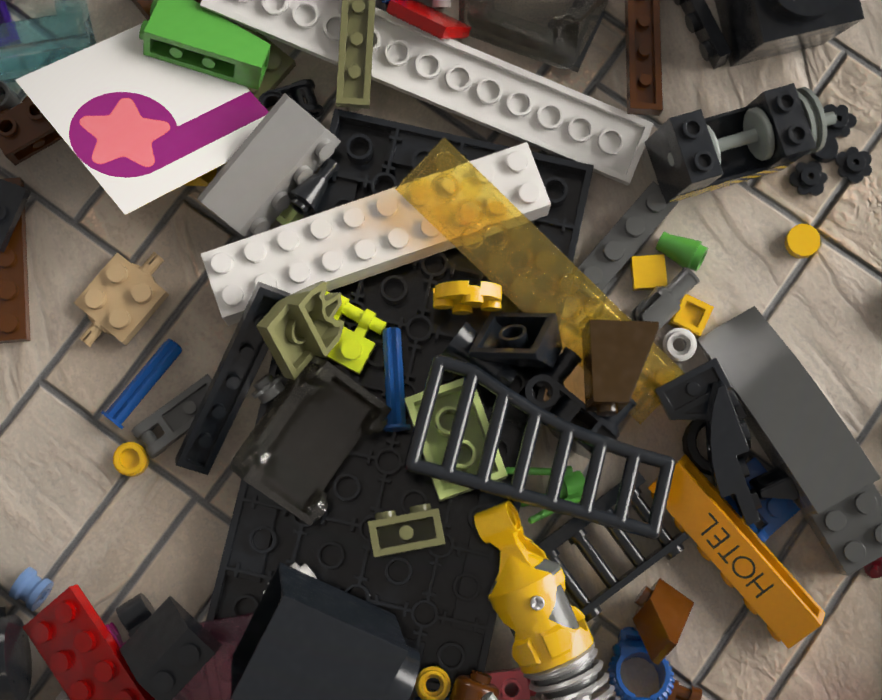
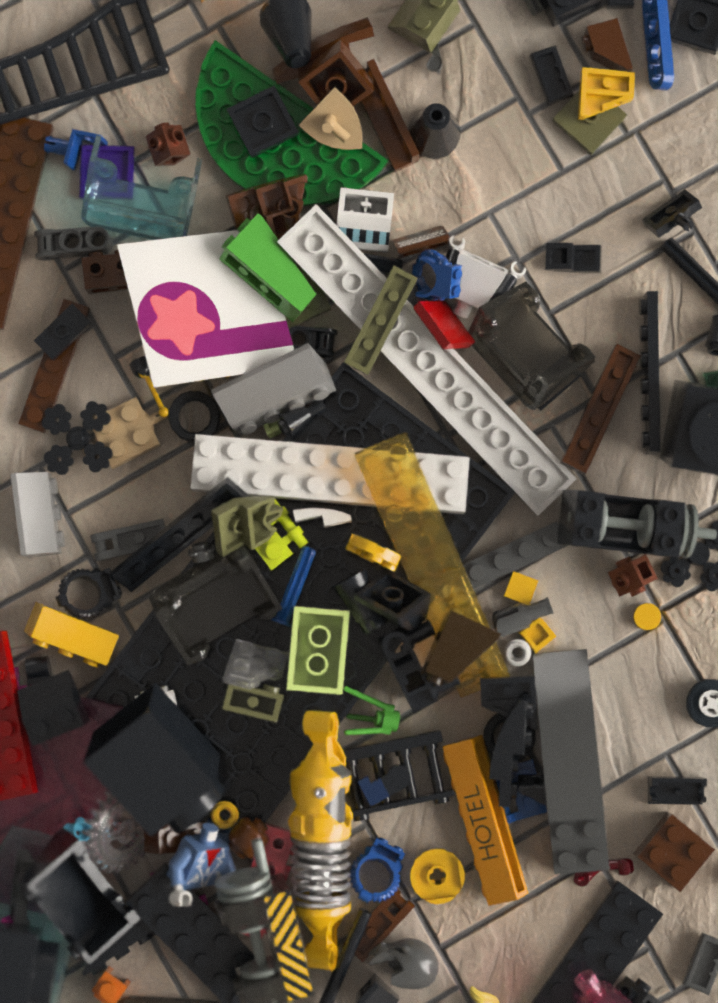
camera: 25 degrees right, 5 degrees up
(56, 433) = (37, 514): none -> light grey slope
(68, 326) = (77, 438): none -> black plant
(110, 218) = (141, 370): none -> hinge
(130, 459) = (81, 555): yellow tile -> none
(143, 382) = (113, 503): blue axle -> none
(157, 555) = (70, 635): none -> yellow wedge
(170, 478) = (106, 587): none -> black piece
(175, 227) = (188, 397): none -> black tyre
(385, 491) = (254, 663): none -> clear plate
(398, 281) = (330, 516): none -> white slope
(536, 416) = (382, 661): black bar -> none
(612, 551) = (395, 780): none -> leg
(661, 618) = (407, 842): reddish brown slope -> none
(682, 250) = (553, 584): bright green cone -> none
(730, 645) = (450, 884): none -> yellow plate
(766, 201) = (632, 575): none -> copper brick

